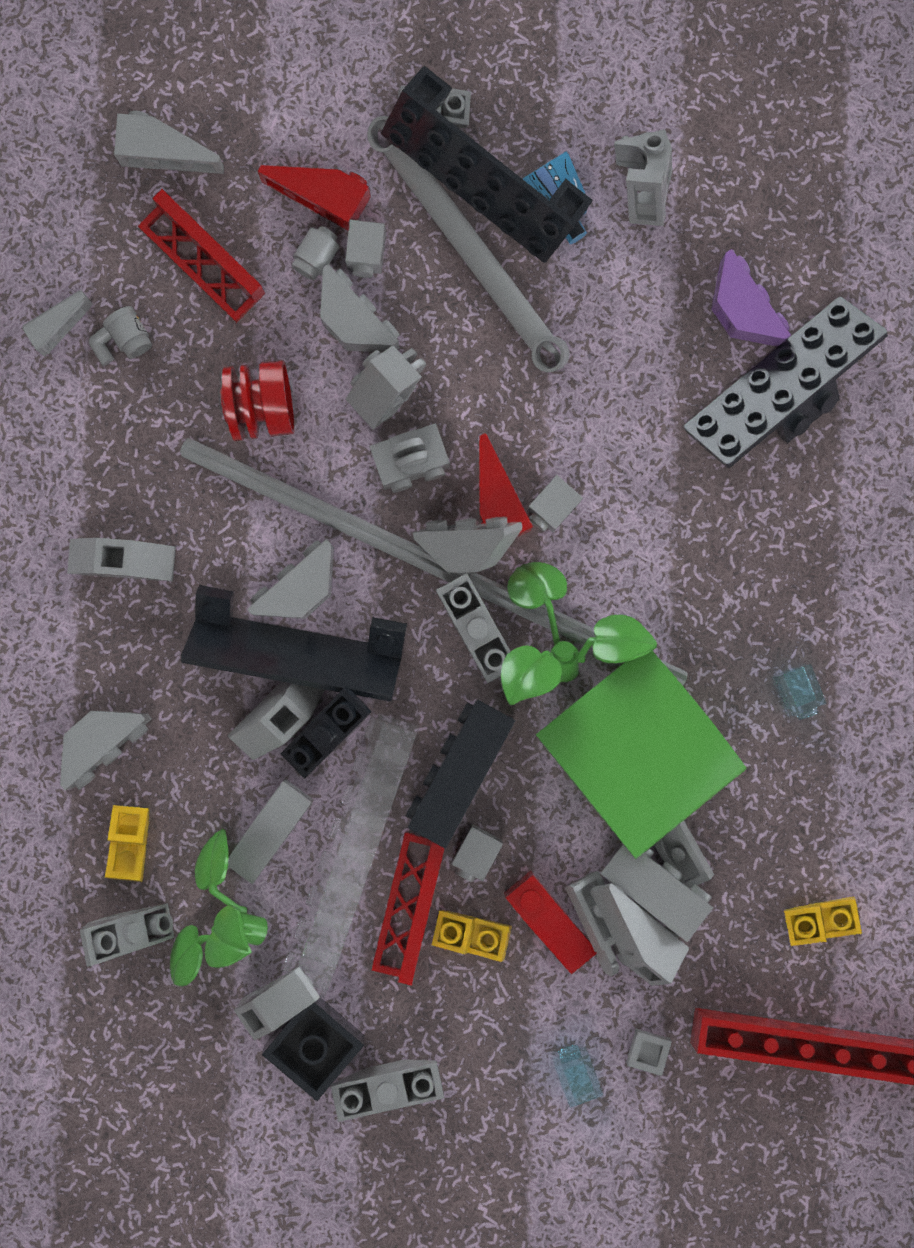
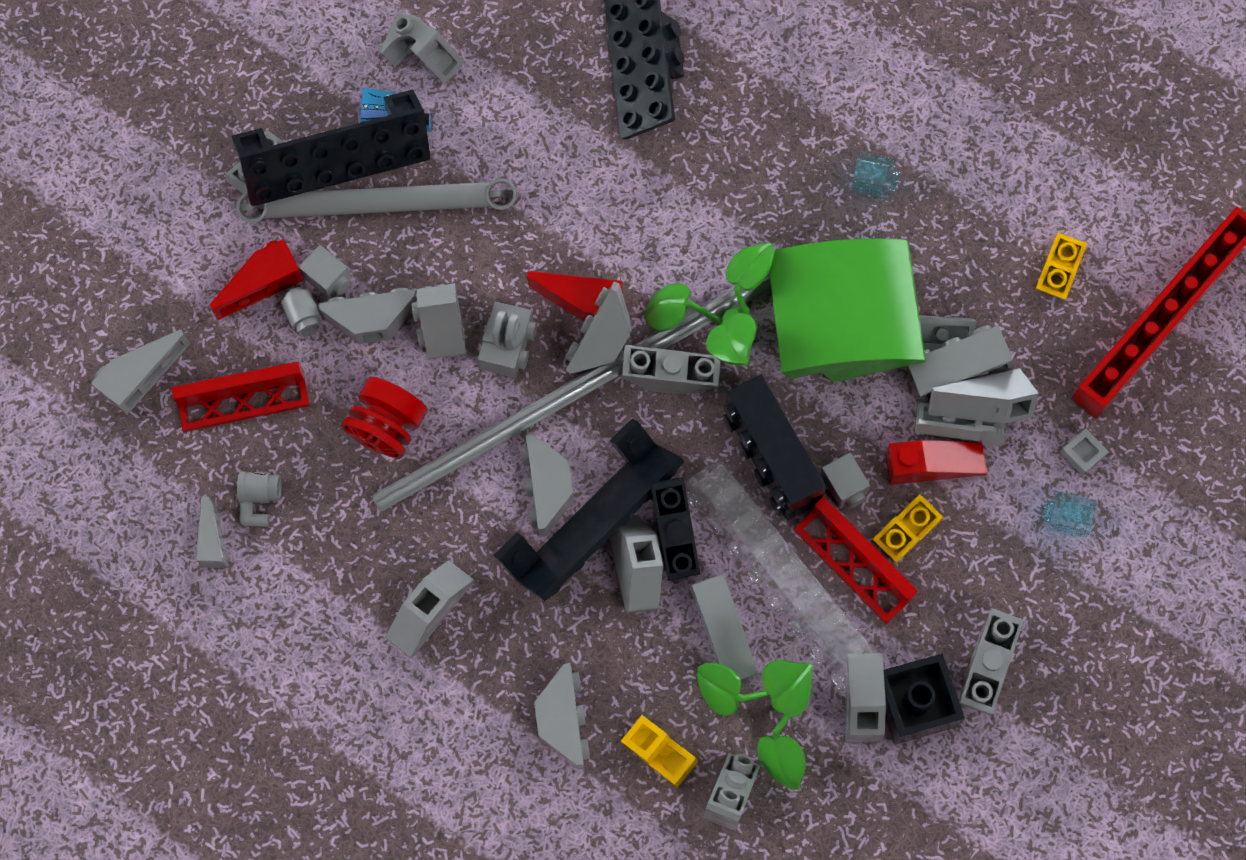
camera: 50 degrees left, 15 degrees down
(553, 505) = (616, 258): light grey brick -> none
(744, 306) = (563, 41): medium lavender slope -> none

